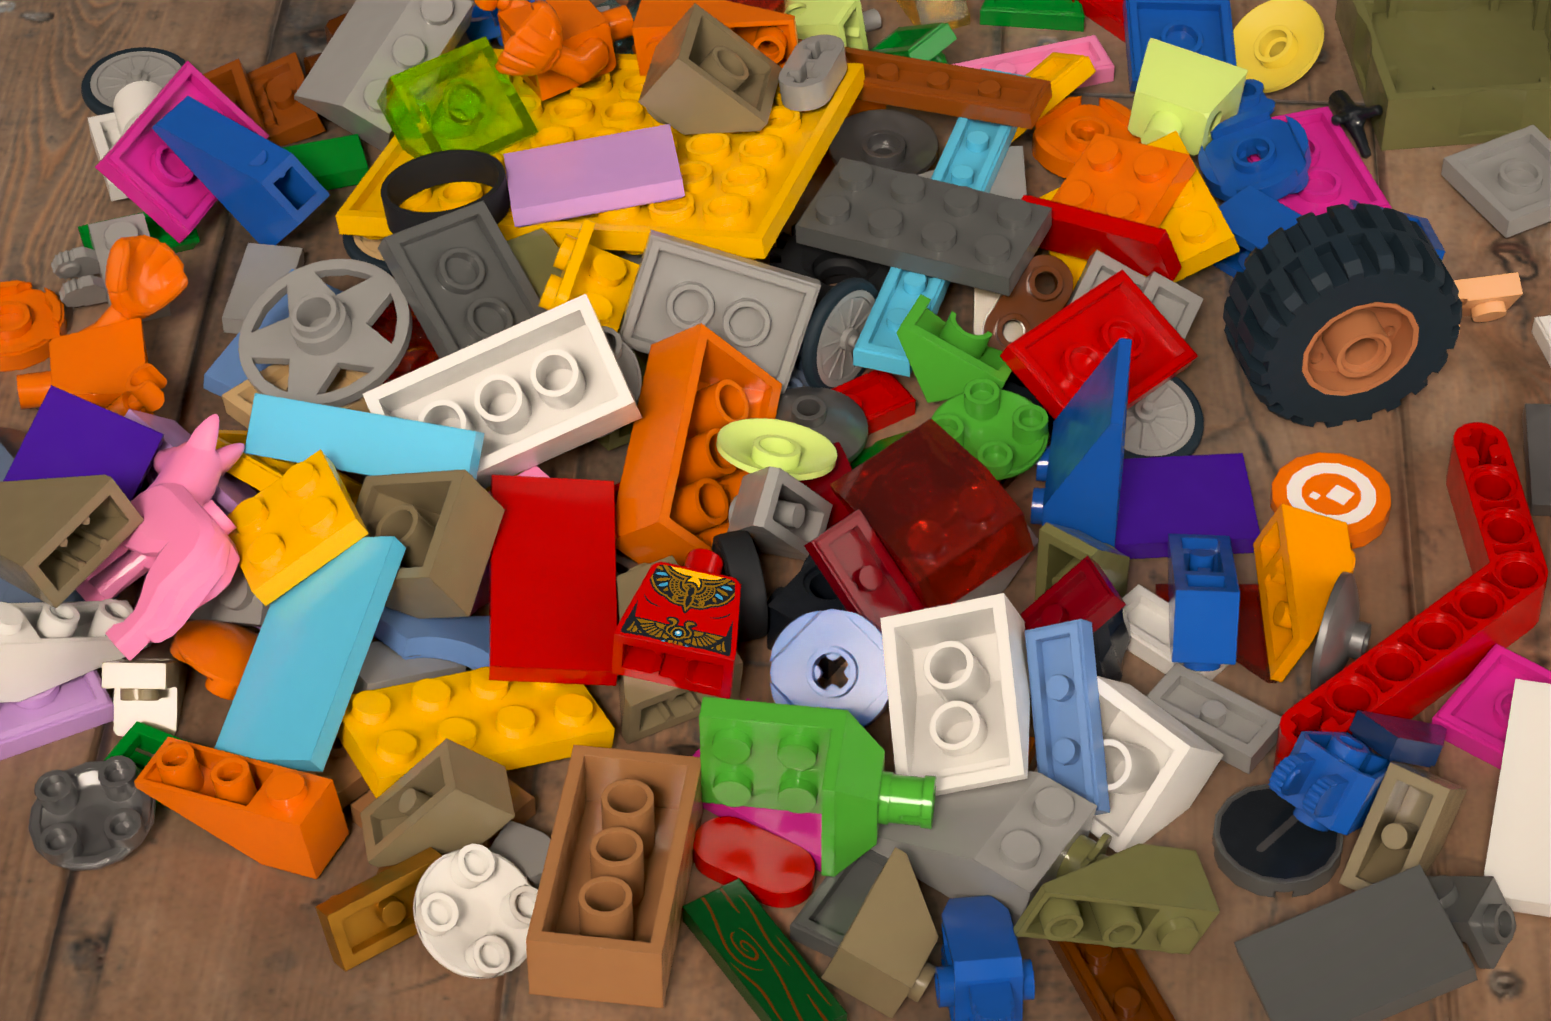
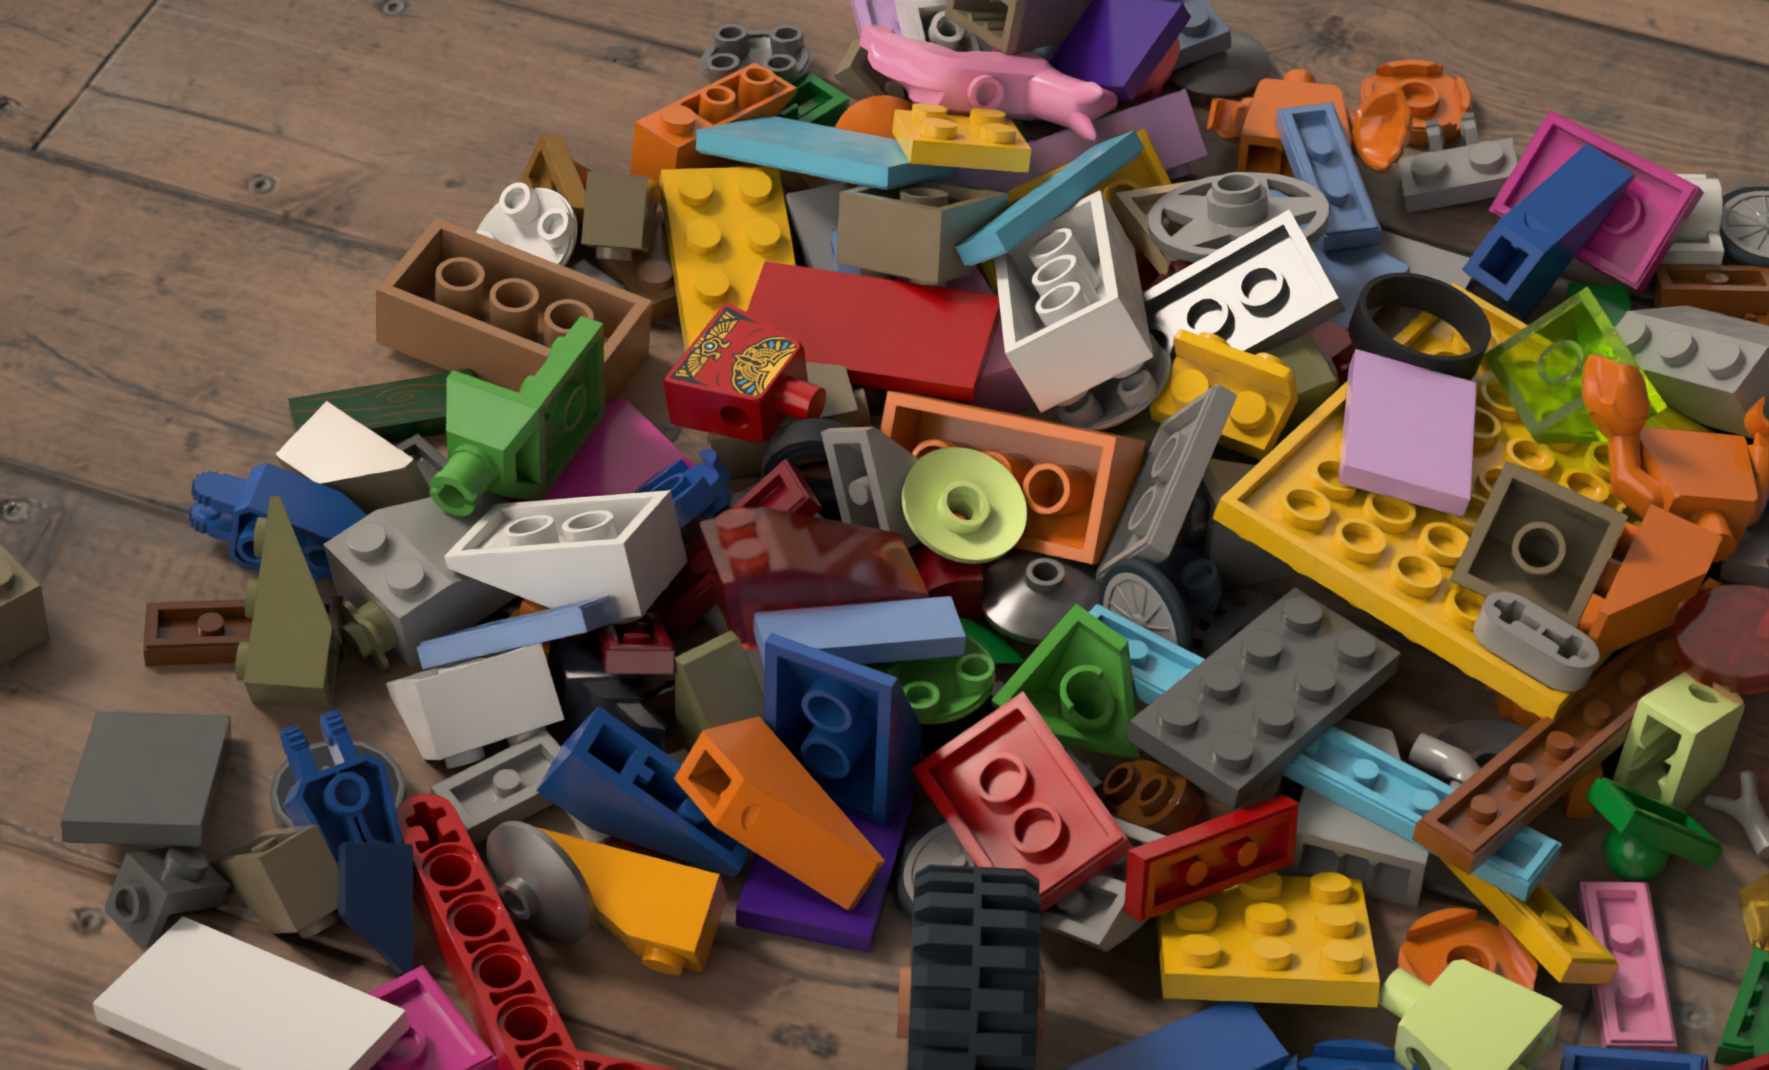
camera: 105 degrees right, 0 degrees up
(188, 323) = (1324, 159): none -> medium blue tile
(908, 147) = (1443, 760): none -> light grey arm
(1003, 448) = (870, 630): none -> medium blue tile
(1126, 180) = (1290, 902): orange plate -> none
(1180, 498) = (777, 809): none -> orange slope
(1336, 489) = (775, 1000): orange tile -> none

